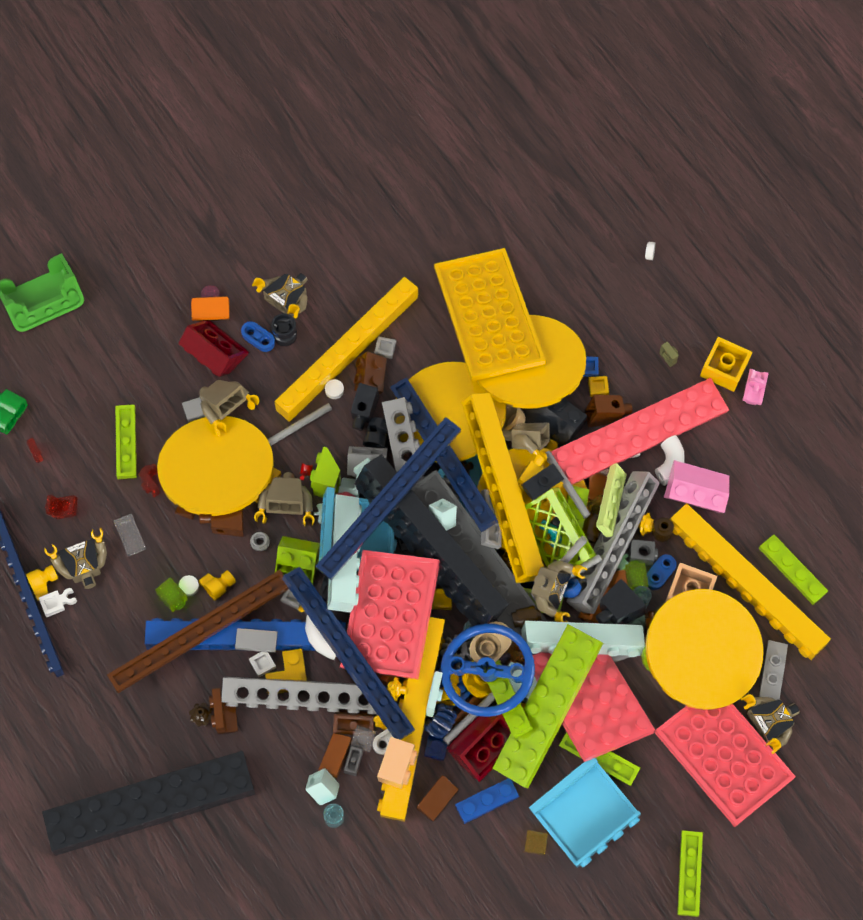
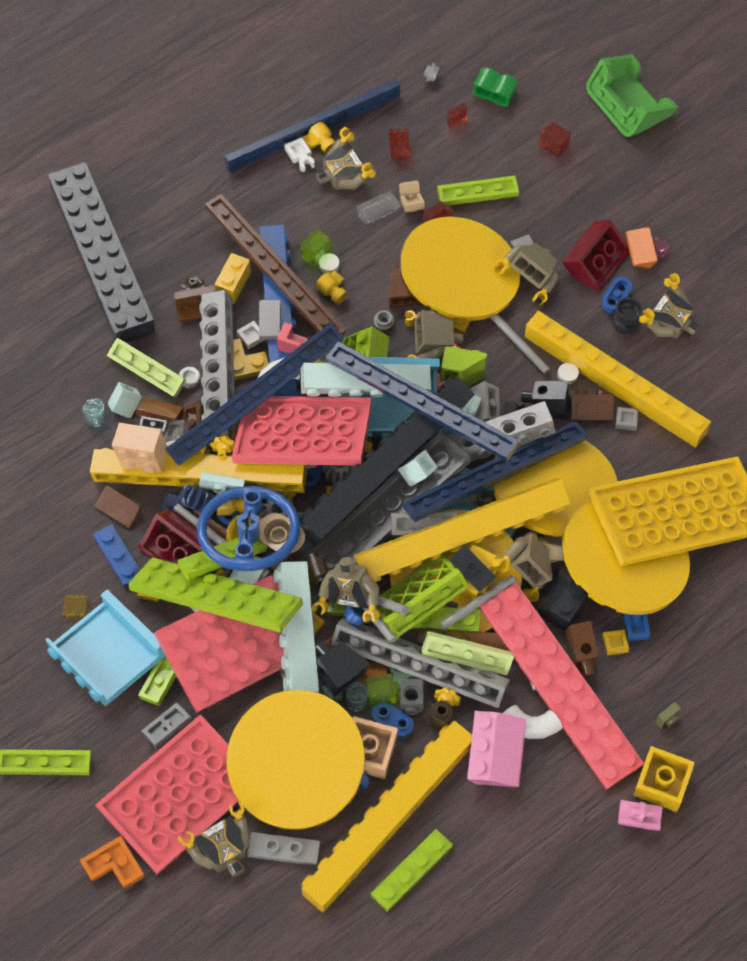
camera: 85 degrees right, 5 degrees down
(77, 366) = (554, 139): none -> clear red brick
(126, 502) = (410, 196): none -> tan bracket
(197, 675) = (233, 276): none -> yellow brick
(284, 621) = (287, 340): none -> coral panel
(288, 764) = (146, 367): none -> yellowish green plate
(301, 725) = (191, 375): none -> white tile
(664, 760) = (166, 726): none -> hinge
(779, 814) = (113, 857): none -> orange plate

